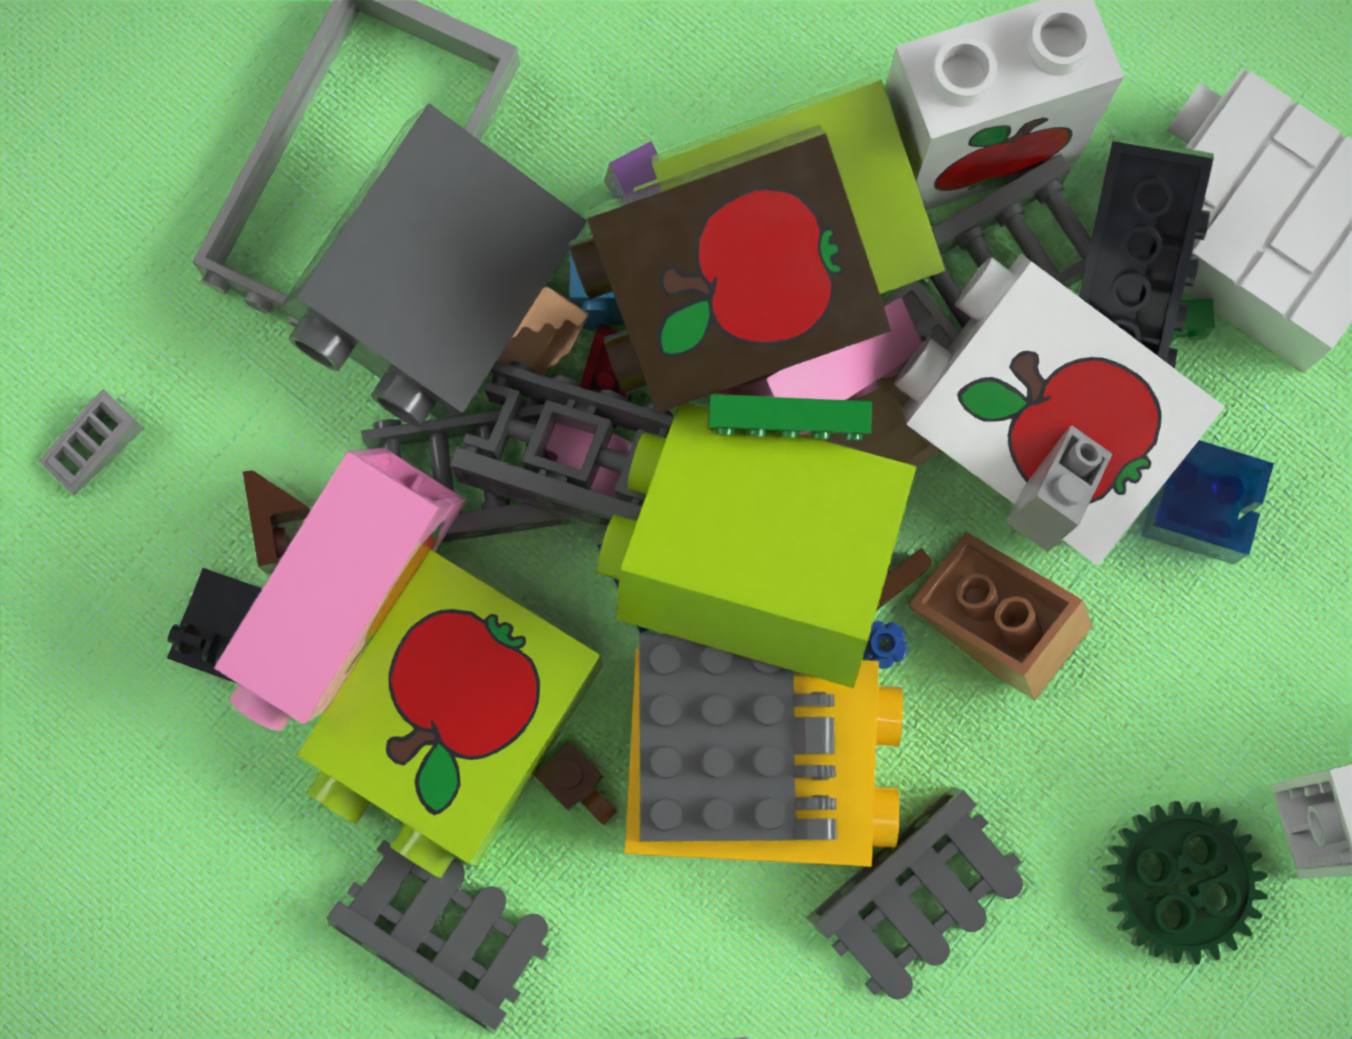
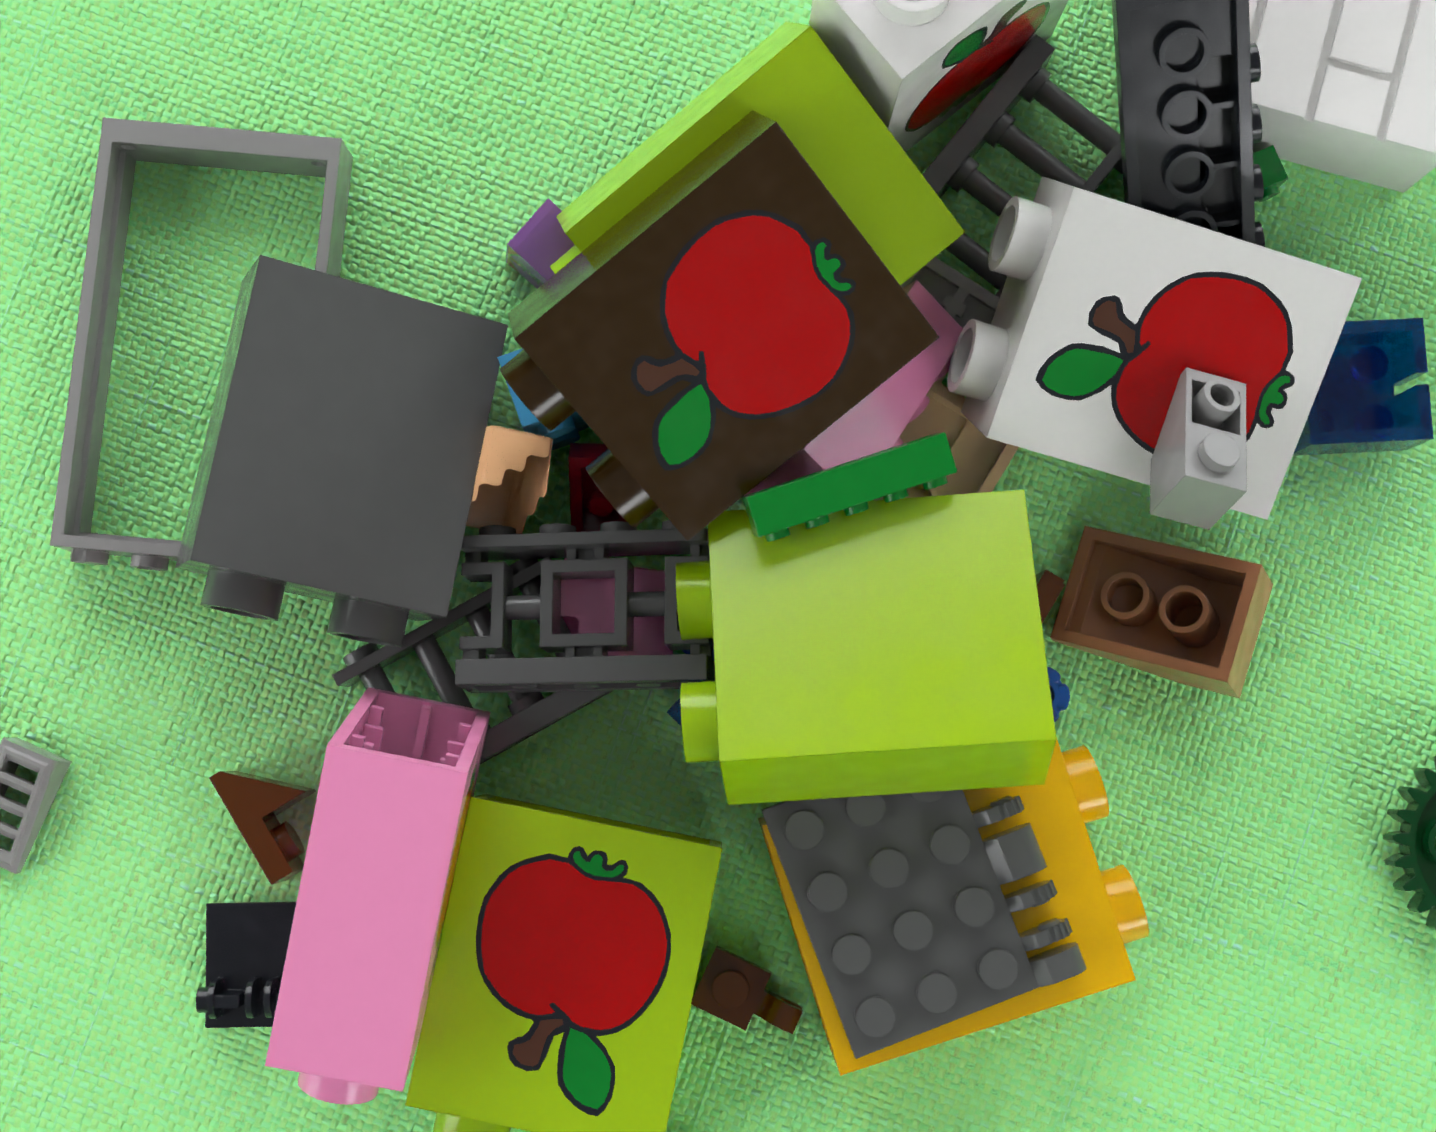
camera: 20 degrees left, 5 degrees up
(928, 867) = (1178, 907): dark grey fence -> none

